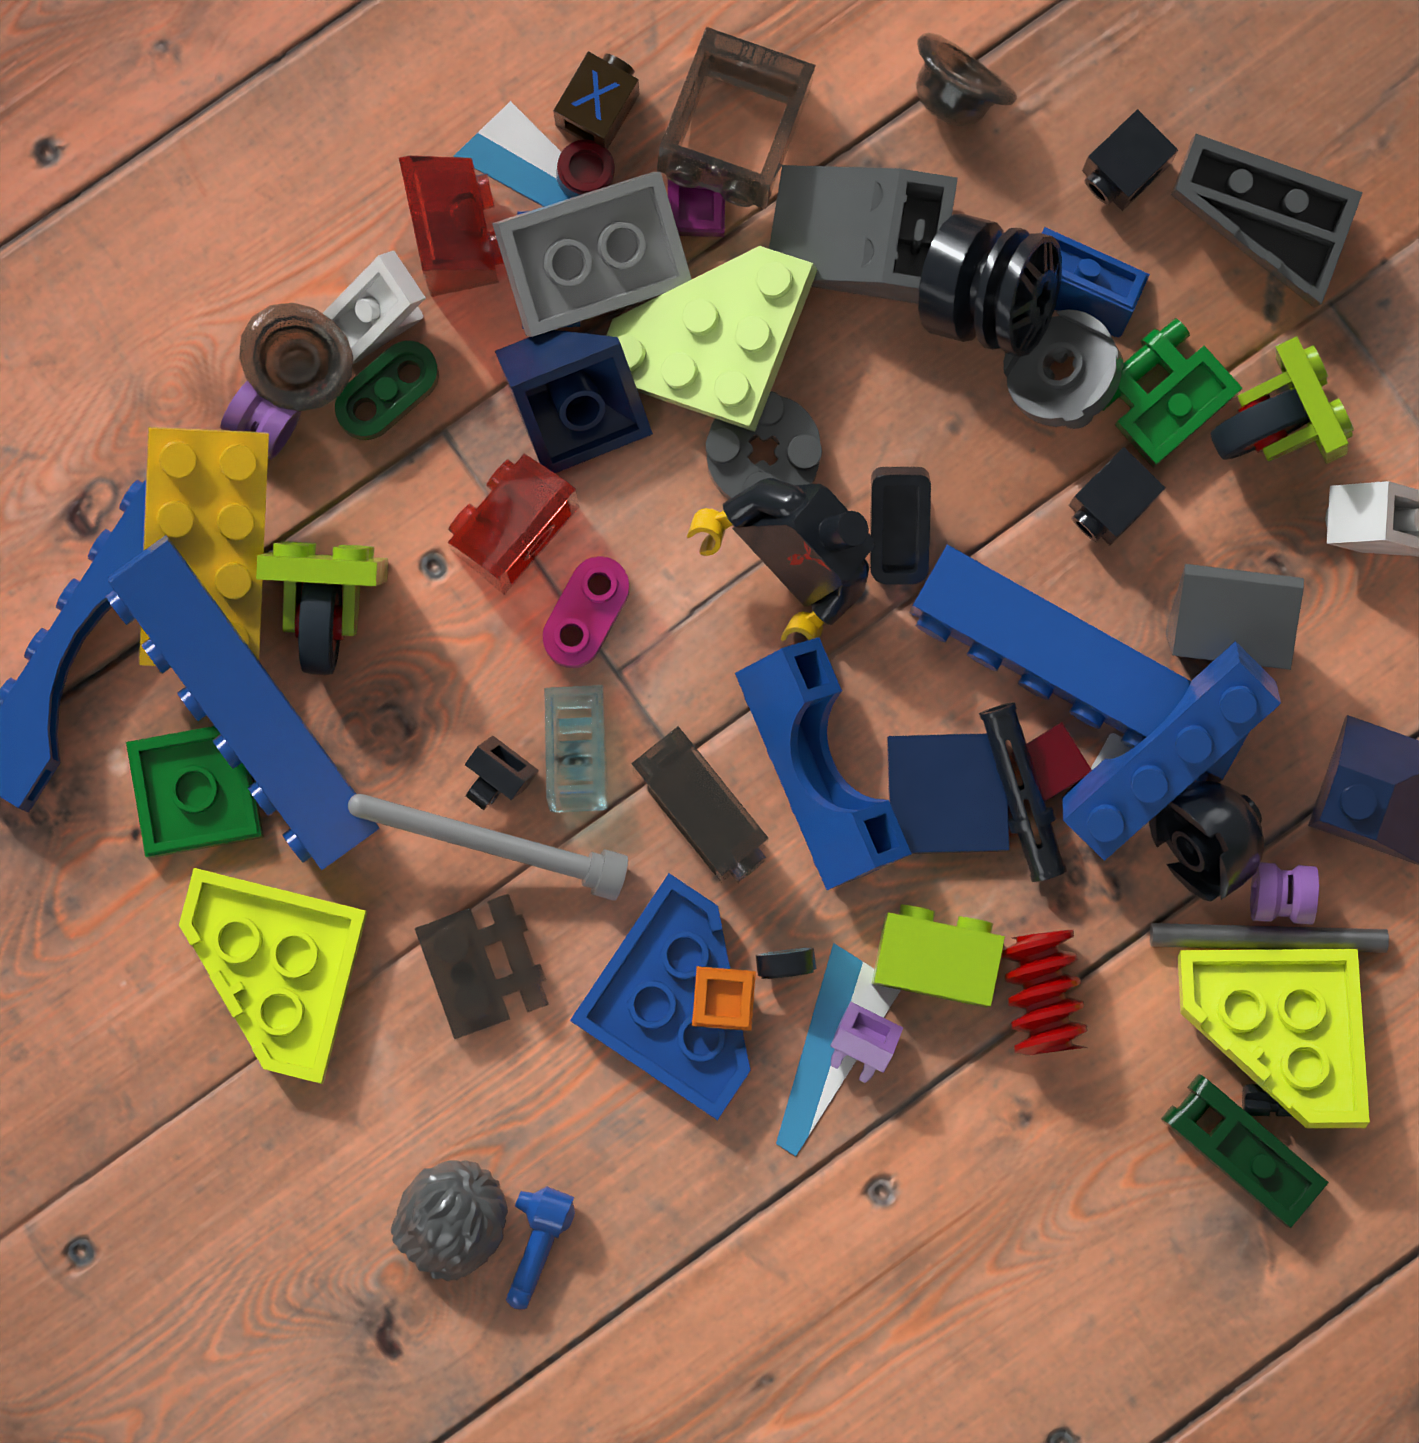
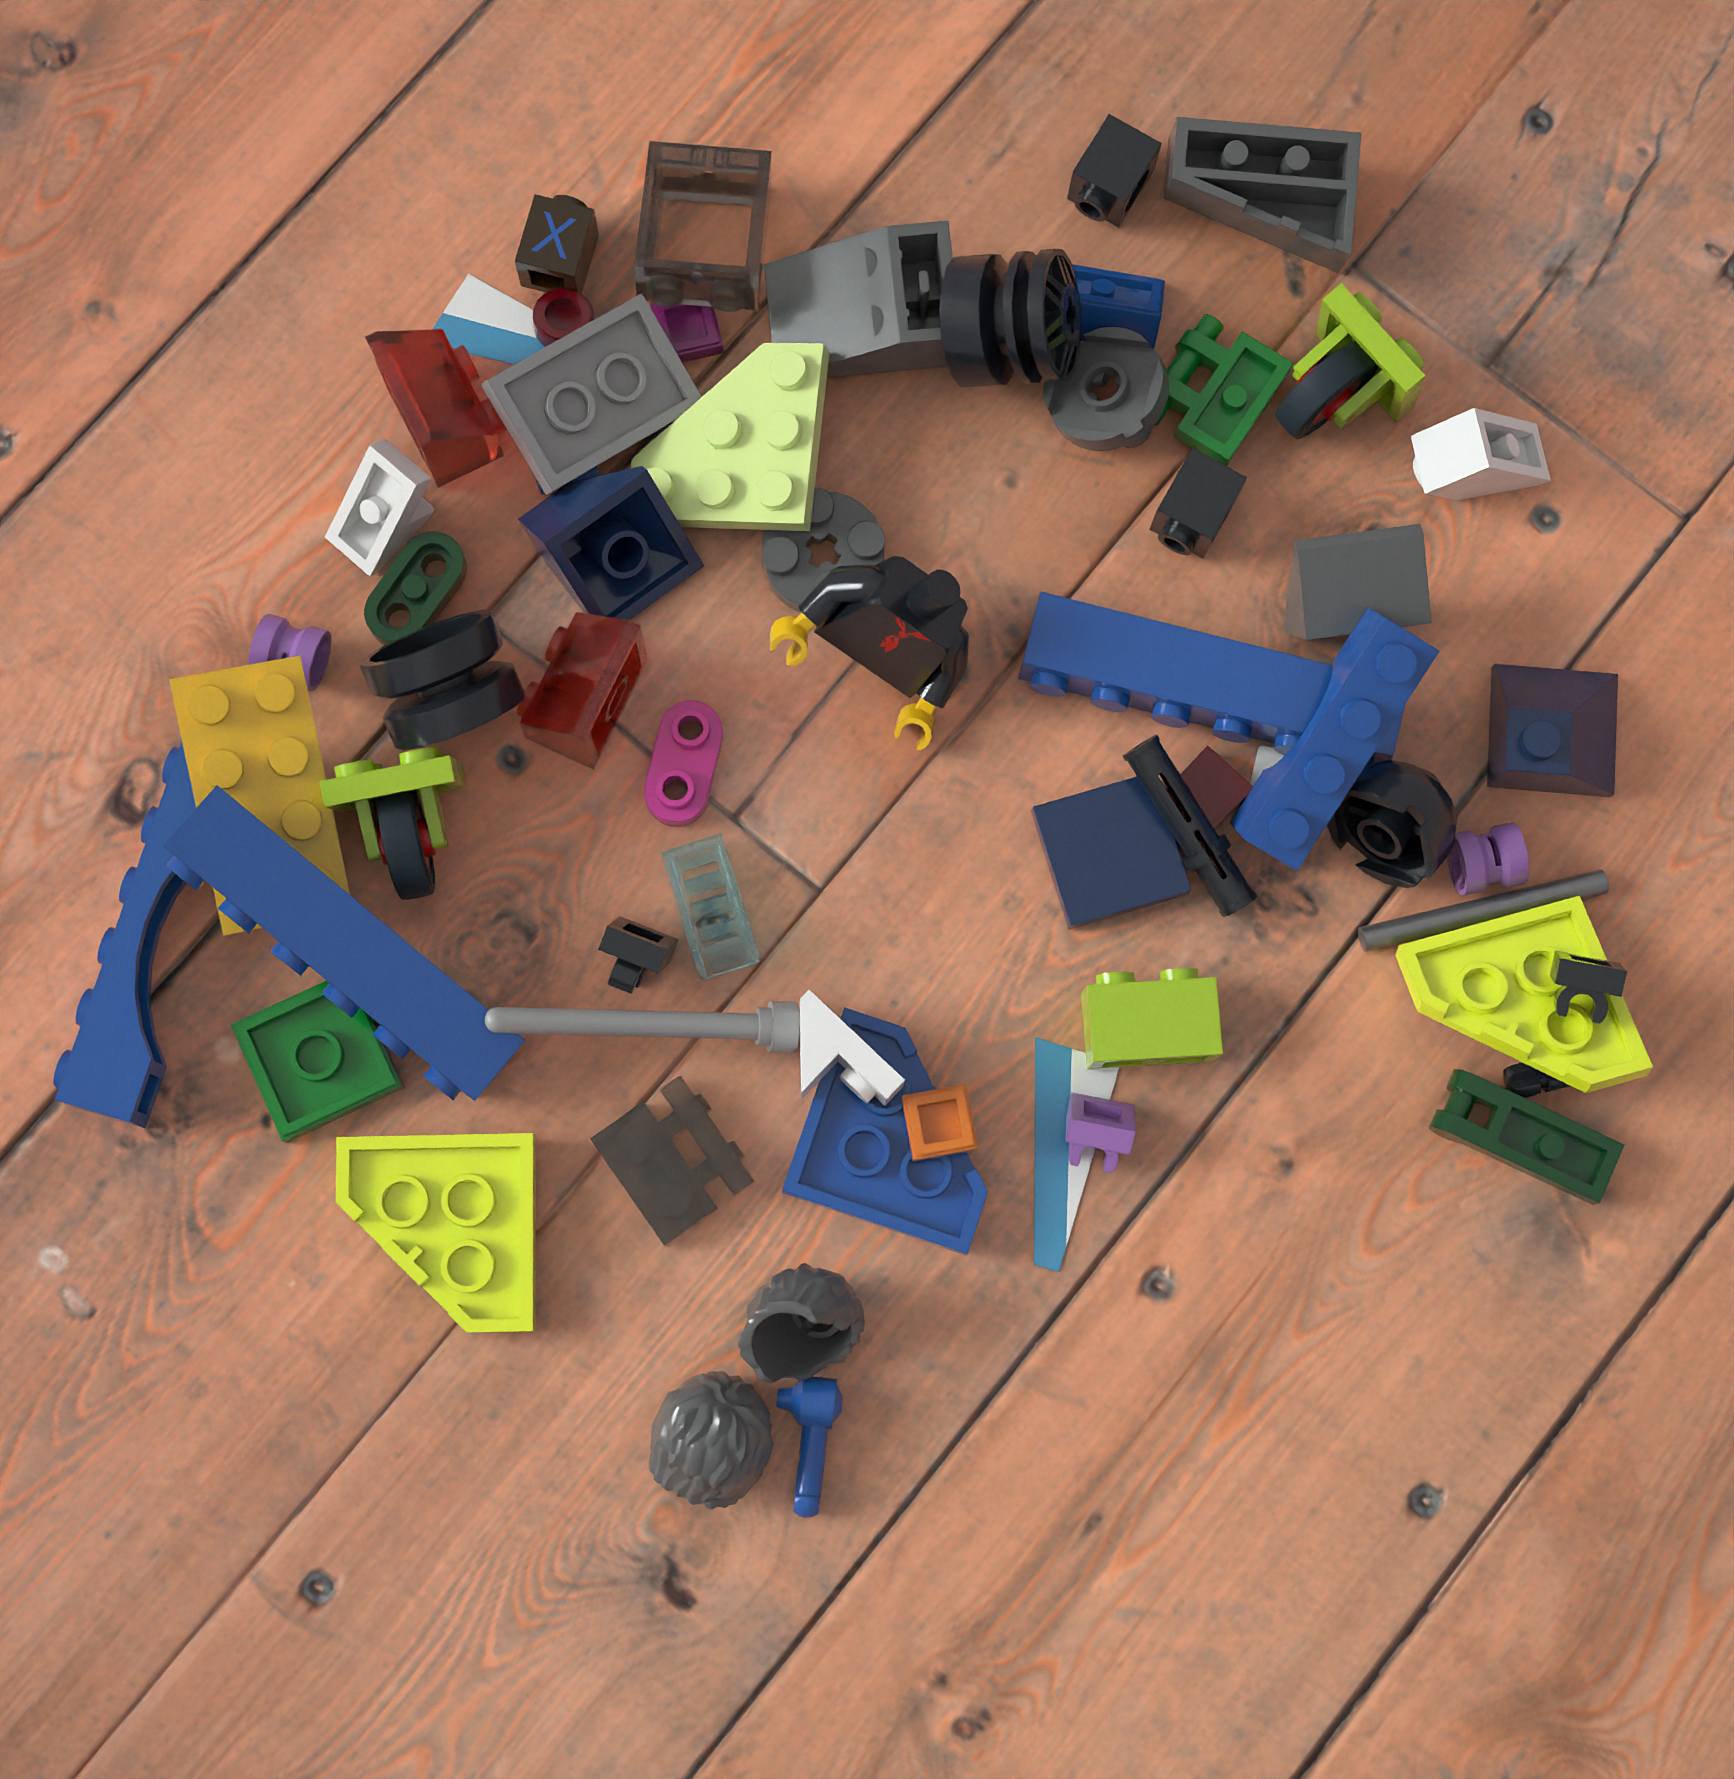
camera: 20 degrees left, 5 degrees down
(295, 357) = (309, 576): clear smoke hat -> none
(389, 486) = (443, 680): none -> black wheel
(554, 1141) = (801, 1324): none -> dark grey hair
(643, 901) = (828, 1041): none -> white slope
(701, 806) = (861, 926): clear smoke window -> none
(786, 963) = (993, 1069): black tile -> none
(791, 706) = (924, 797): blue arch -> none
(900, 525) = (989, 584): black piece -> none
(956, 84) = (917, 141): clear smoke hat -> none
(1044, 993) = (1271, 1027): red piece -> none
(1334, 1025) = (1586, 976): none -> black tile

